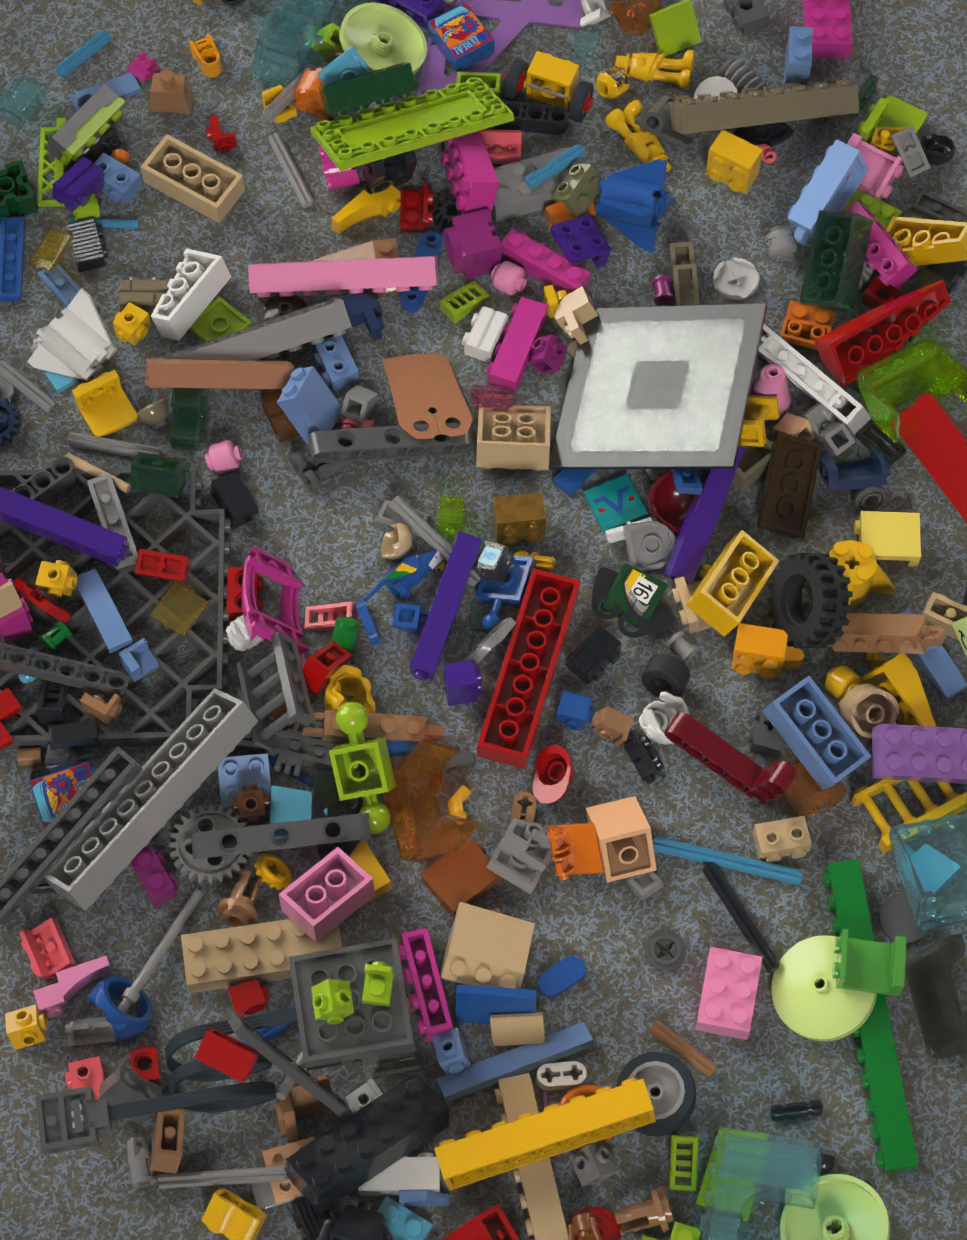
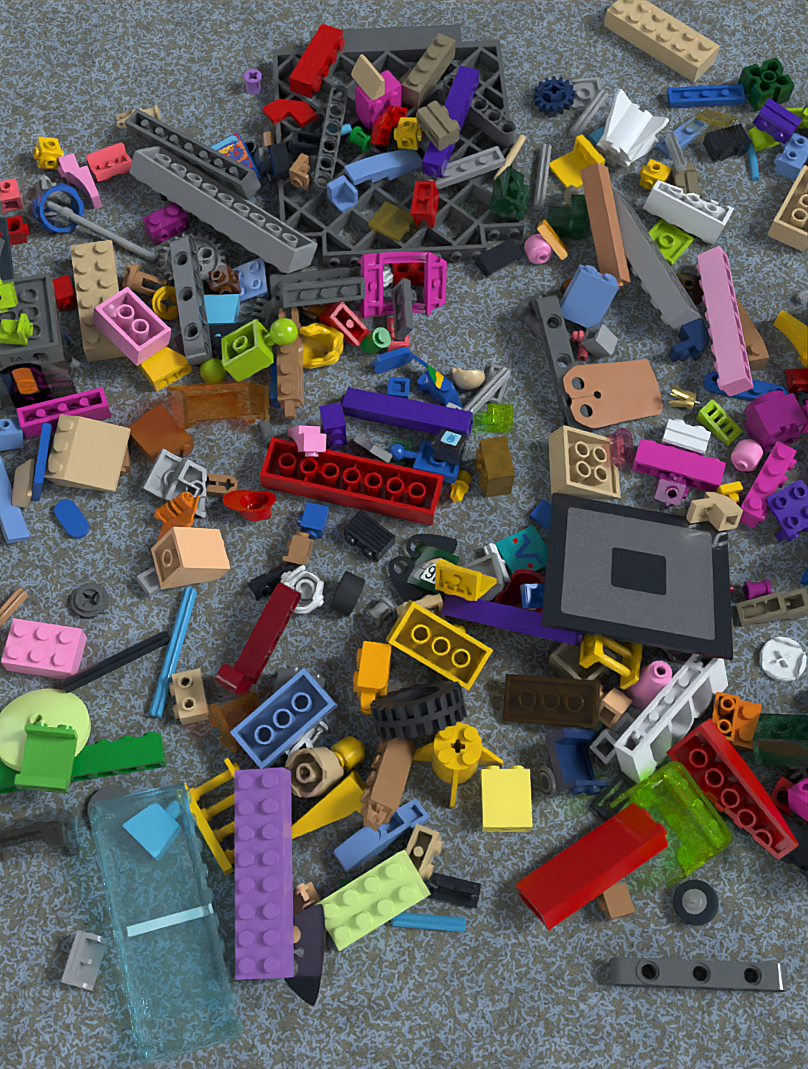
camera: 85 degrees right, 0 degrees up
(74, 531) = (438, 125): none -> dark tan brick
(112, 294) = (675, 152): none -> light grey axle
(217, 437) = (553, 239): none -> light orange tile
(307, 602) = (403, 299): none -> dark grey hinge
(336, 363) = (639, 325): medium blue brick -> none
(433, 325) = (686, 398): none -> pearl gold piece
(455, 803) = (228, 433): yellow arm -> none
(482, 704) = (308, 439): none -> bright pink slope
(663, 552) = (462, 581): none -> yellow bracket

